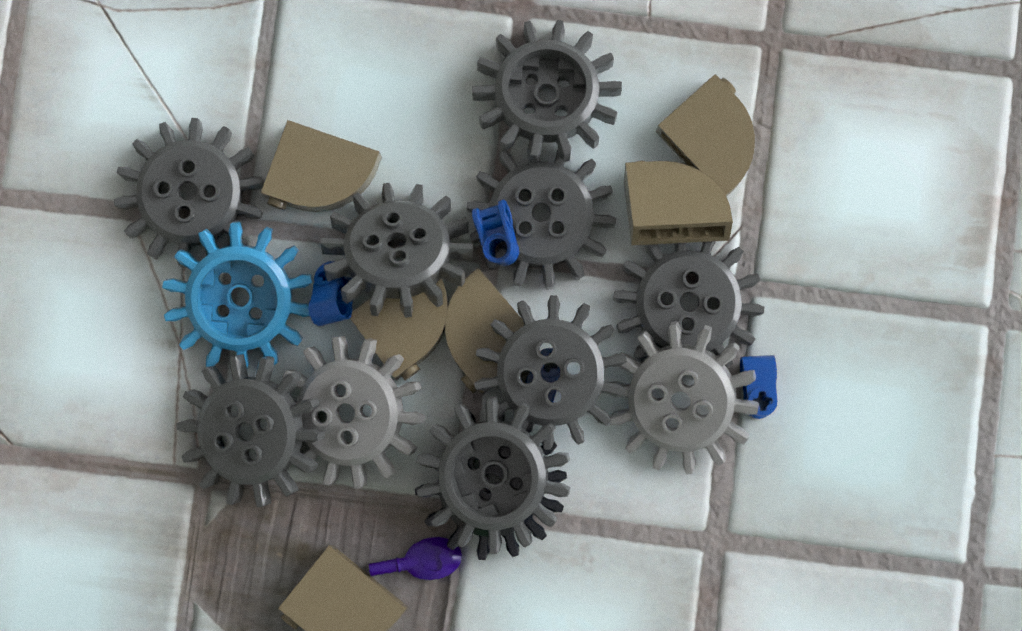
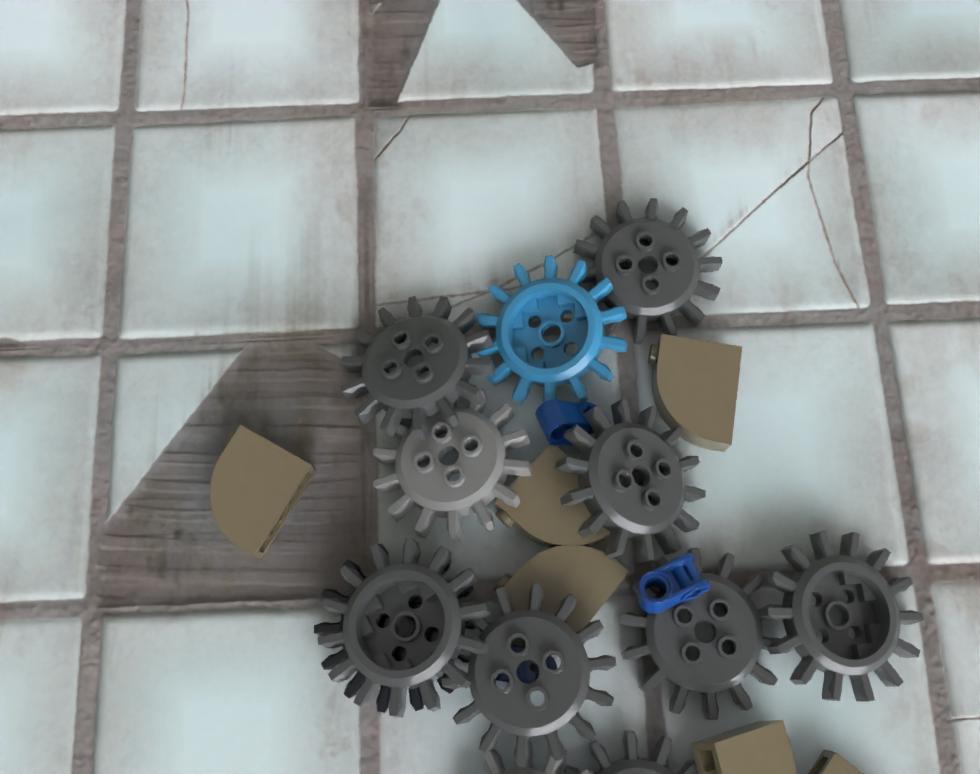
camera: 80 degrees right, 10 degrees down
(425, 560) = (310, 567): dark purple piece -> none

